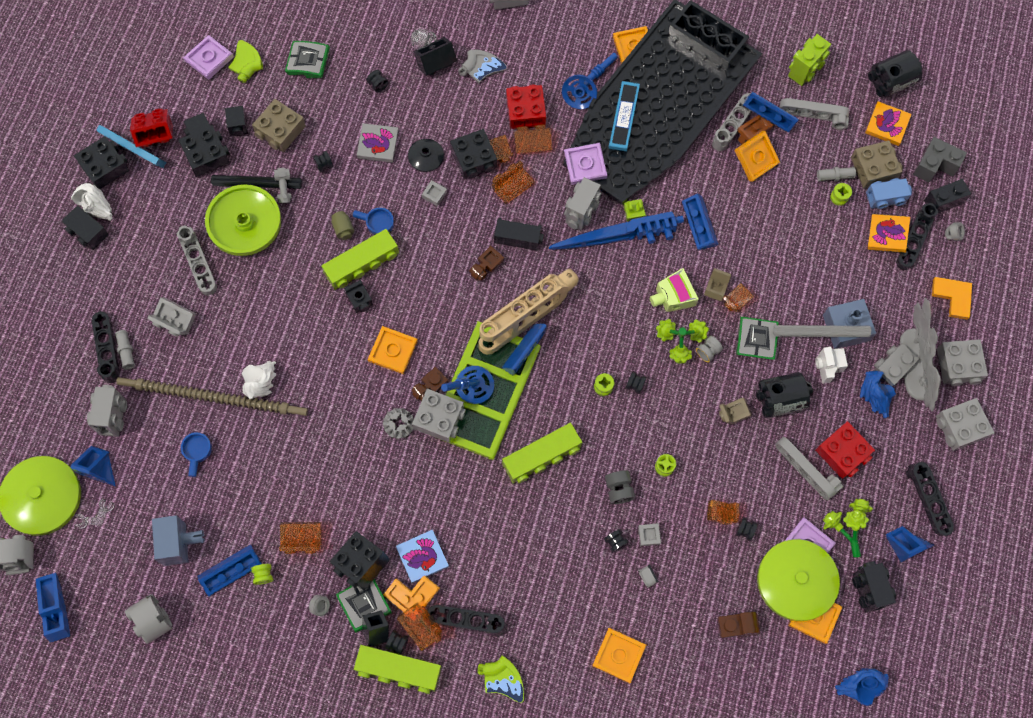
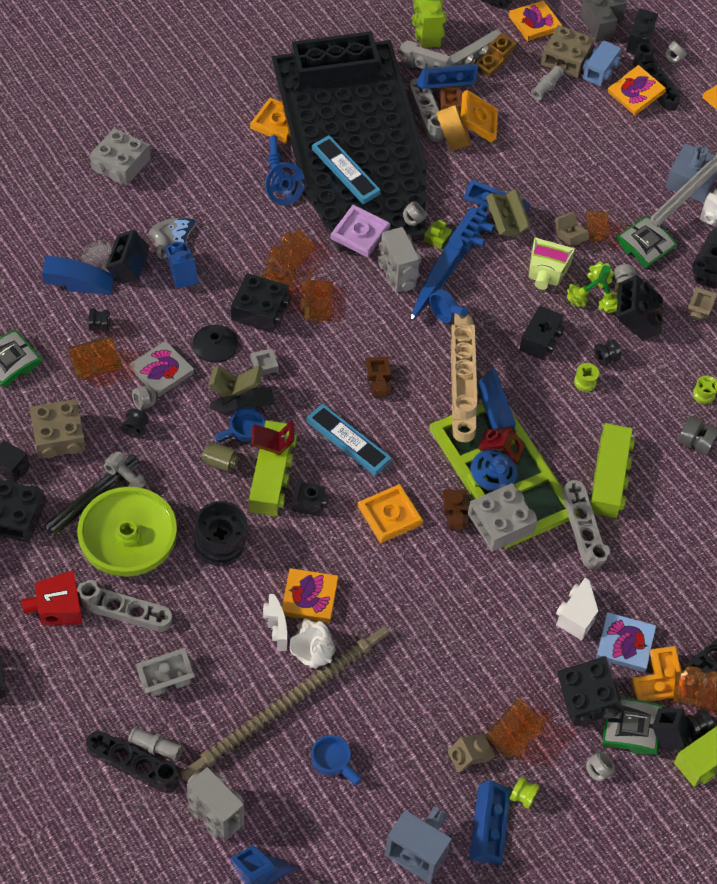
camera: 50 degrees left, 15 degrees down
(166, 222) = (55, 600): none -> red torso
(261, 342) = (277, 621): none -> white slope
(264, 523) = (470, 751): none -> dark tan bracket
(284, 259) = (223, 522): none -> black wheel
(294, 351) = (309, 595): none -> light orange tile
(344, 150) = (141, 397): none -> light grey tile
(347, 102) = (94, 358): none -> clear orange bracket
(369, 241) = (272, 440): none -> dark red bracket
(393, 206) = (250, 399): none -> black slope
(396, 42) = (77, 276): none -> blue slope
(399, 188) = (230, 385): none -> olive bracket
(403, 430) = (469, 571): light grey gear -> none
(417, 512) = (579, 612): none -> white slope
(424, 285) = (348, 439): none -> tile
(460, 88) = (181, 264): none -> blue slope
(486, 469) = (592, 552): none -> light grey beam
(497, 369) = (502, 439): none -> dark red bracket
(518, 234) = (374, 331): black brick -> none
(525, 106) = (254, 231): red brick -> none
(574, 260) = (445, 306): none -> blue piece
(620, 325) = (541, 333): none -> black brick
(628, 183) = (416, 212): none -> light grey tile
(687, 375) = (639, 308): none -> black brick
(688, 236) = (508, 213): none -> olive bracket
(725, 147) = (453, 128): none -> pearl gold slope
(770, 82) = (422, 57): none -> light grey plate
(824, 125) = (495, 57): none -> pearl gold slope
(837, 196) = (569, 93): lime wheel -> none

